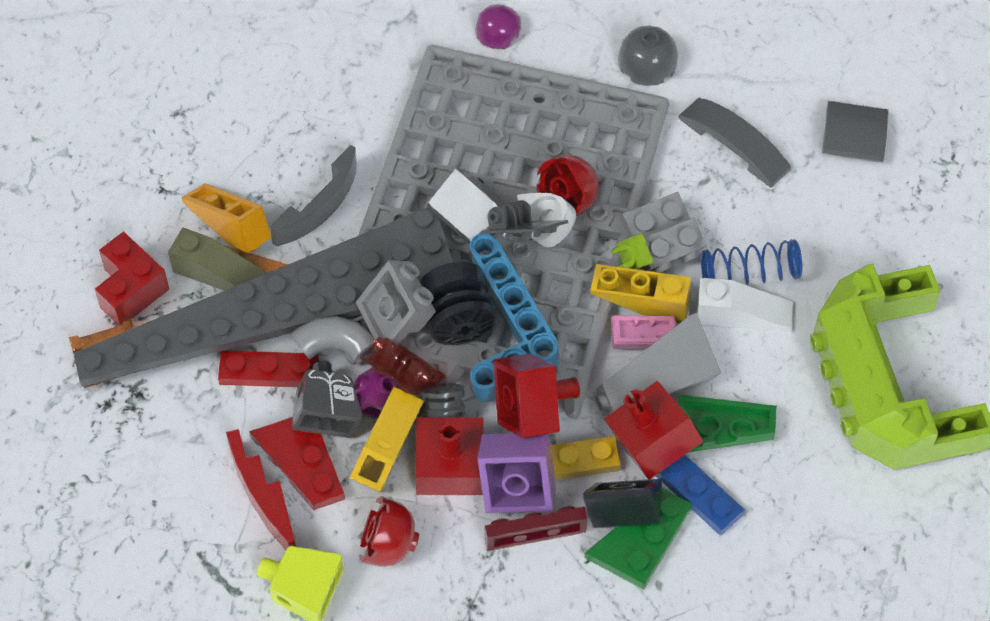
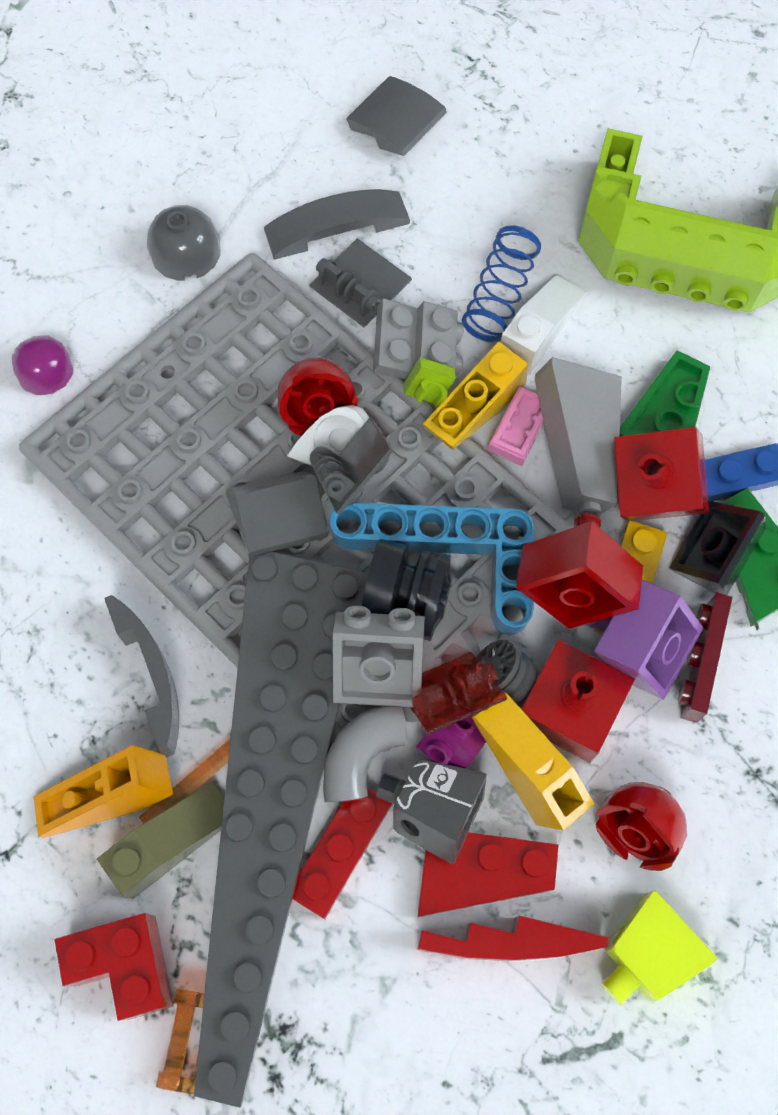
camera: 60 degrees left, 10 degrees up
(695, 176) = (359, 281): none -> dark grey hinge

